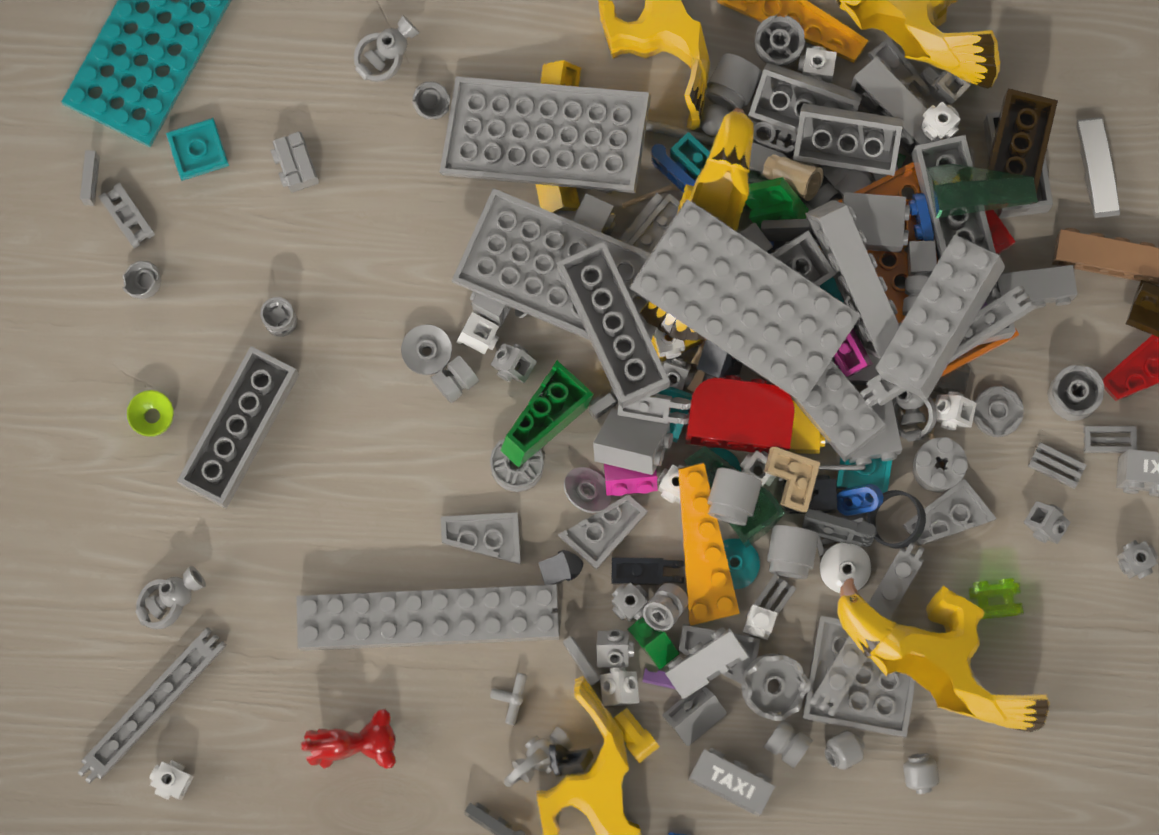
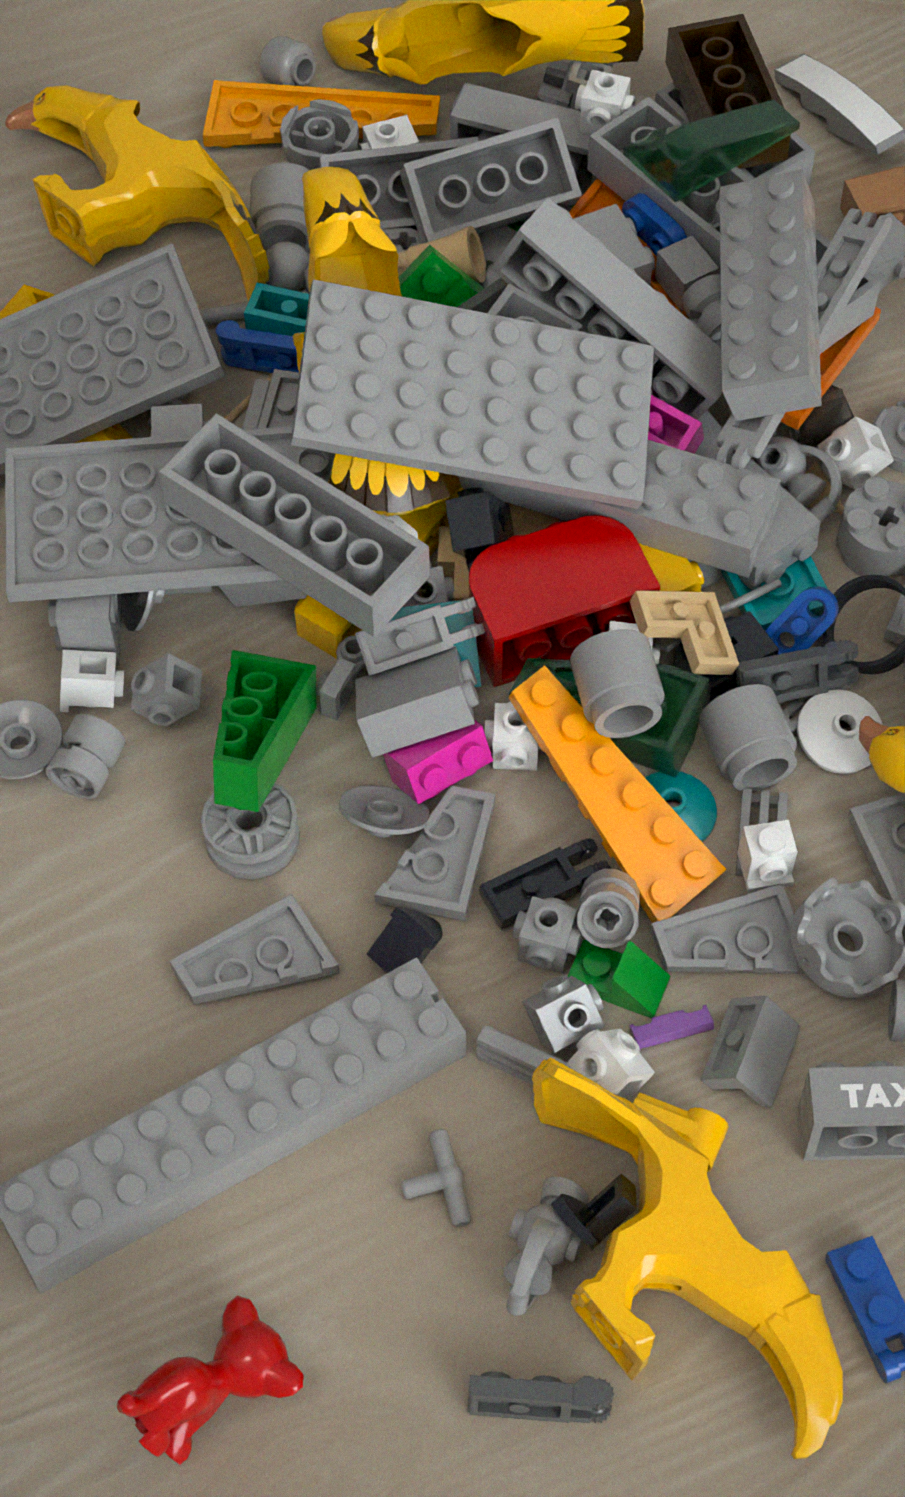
camera: 30 degrees left, 20 degrees down
(705, 662) = (726, 947): light grey wedge -> none

